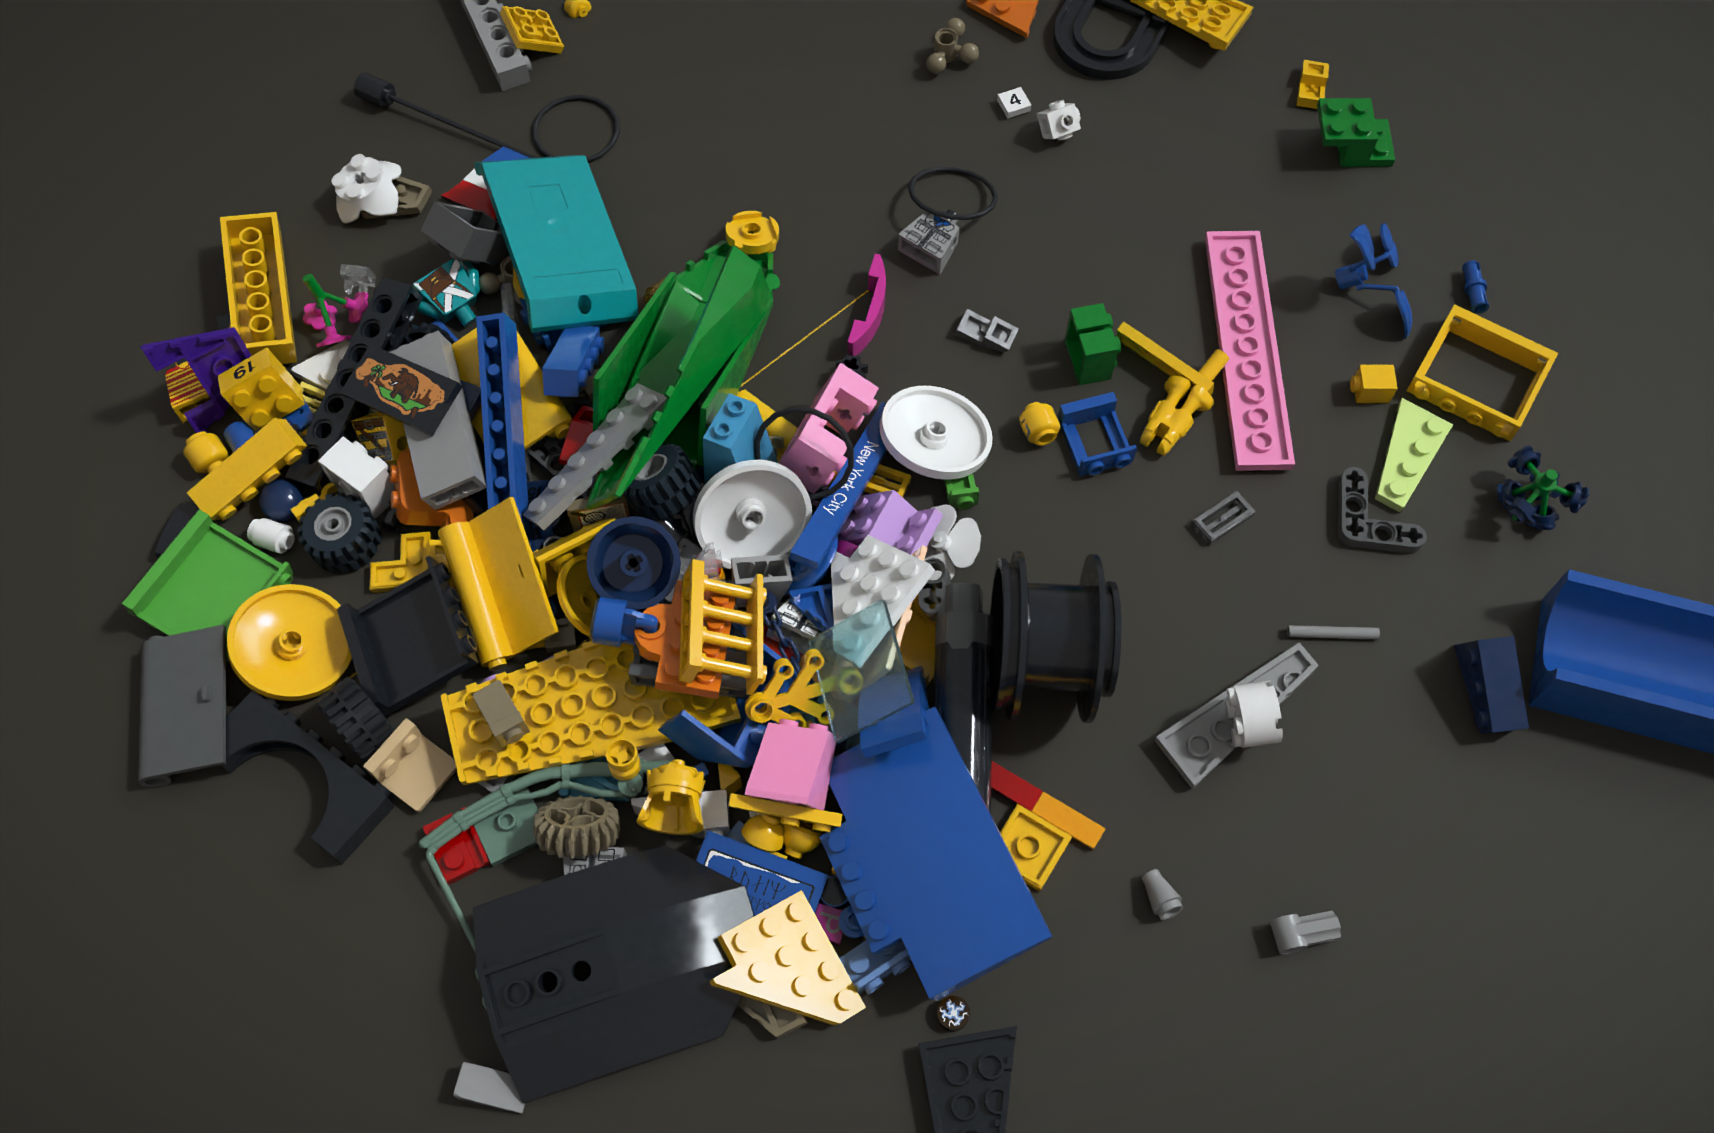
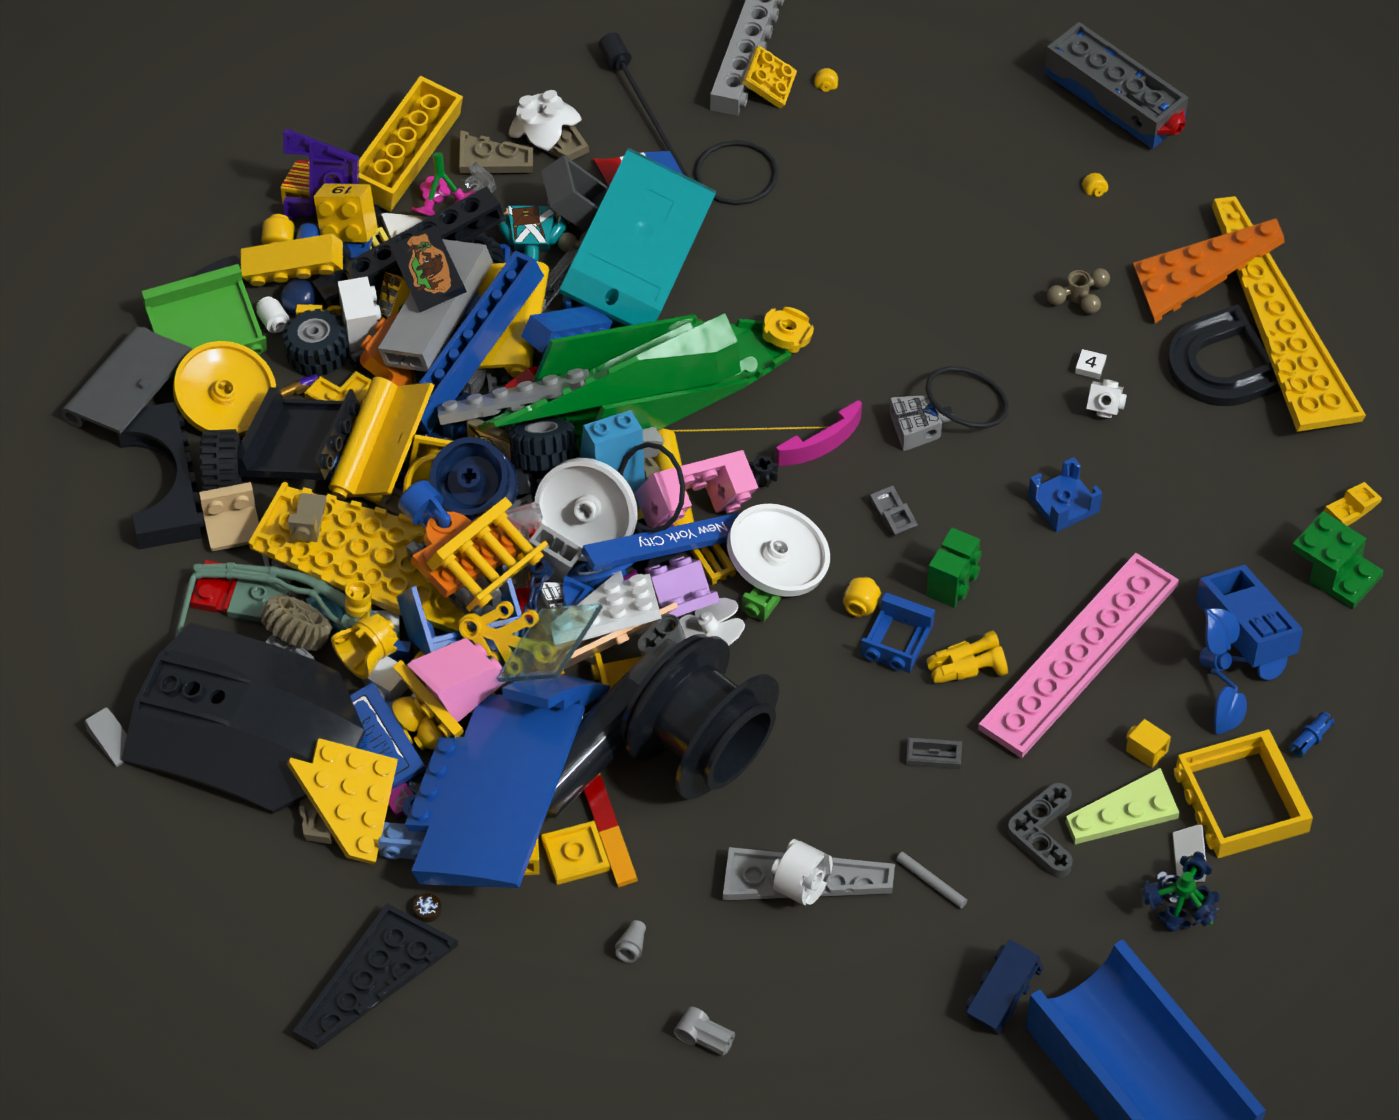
camera: 40 degrees right, 10 degrees down
(352, 248) = (494, 156): none -> dark tan wing
(359, 586) = (298, 387): none -> pearl gold piece
(1105, 225) = (1065, 497): none -> blue panel
(1169, 363) = (1012, 649): yellow piece -> none
(1341, 215) = (1257, 614): none -> blue piece
(1491, 451) = (1186, 843): none -> white slope

